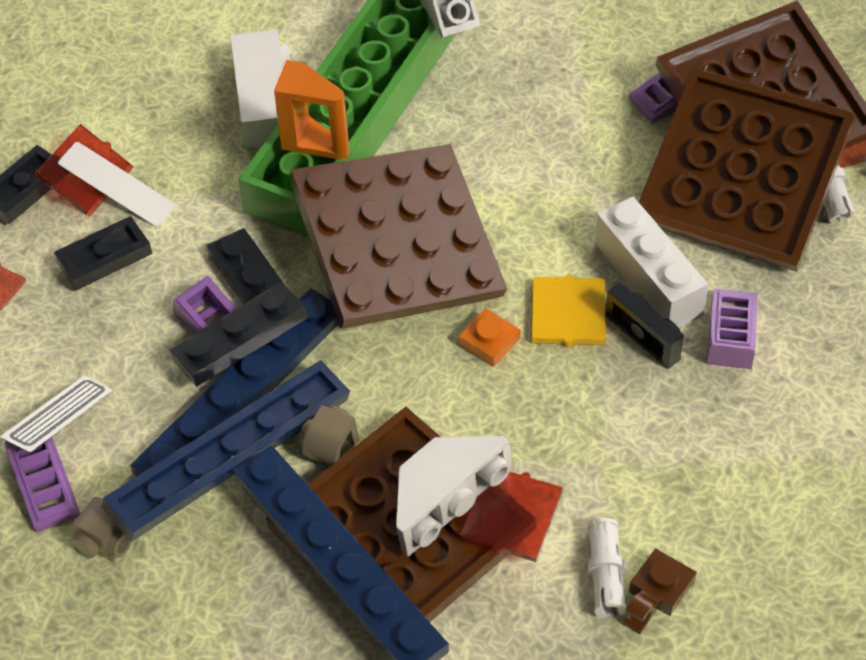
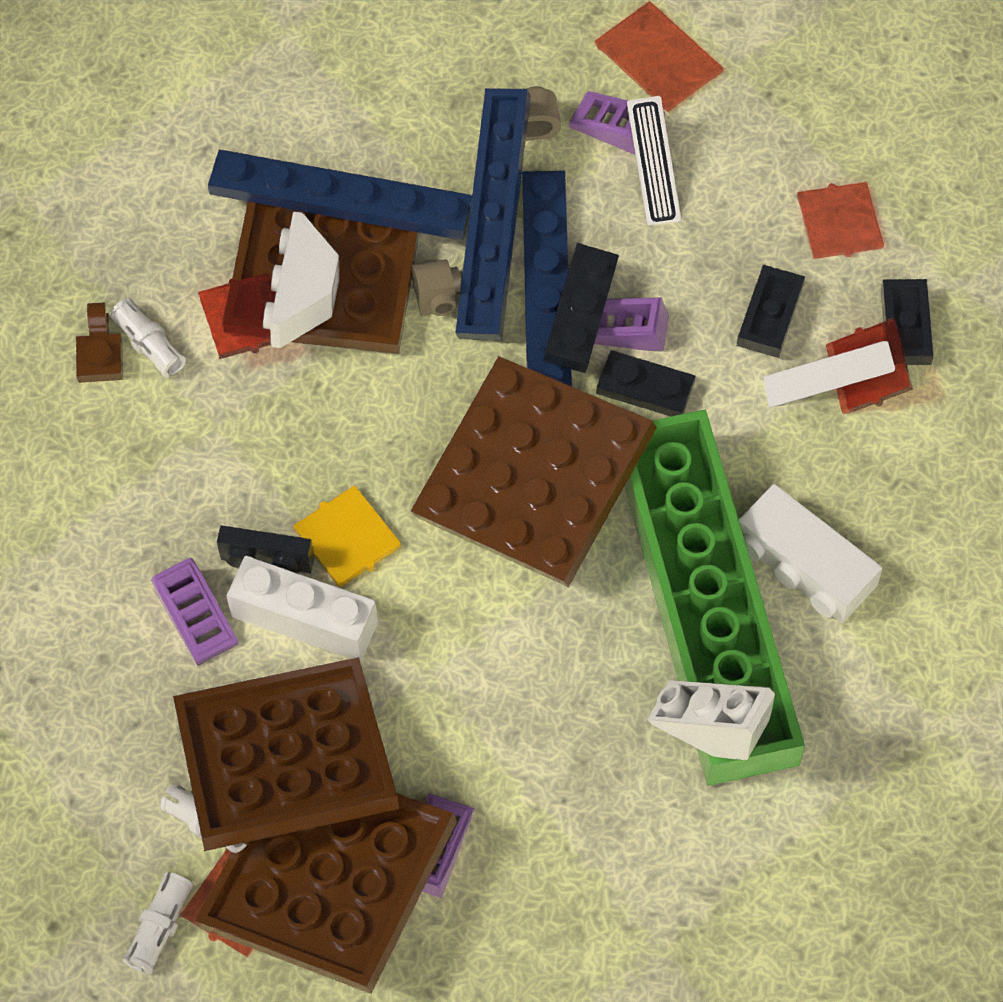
camera: 140 degrees right, 10 degrees up
(297, 130) = (697, 472): orange tile -> none
(489, 337) = (390, 463): orange plate -> none

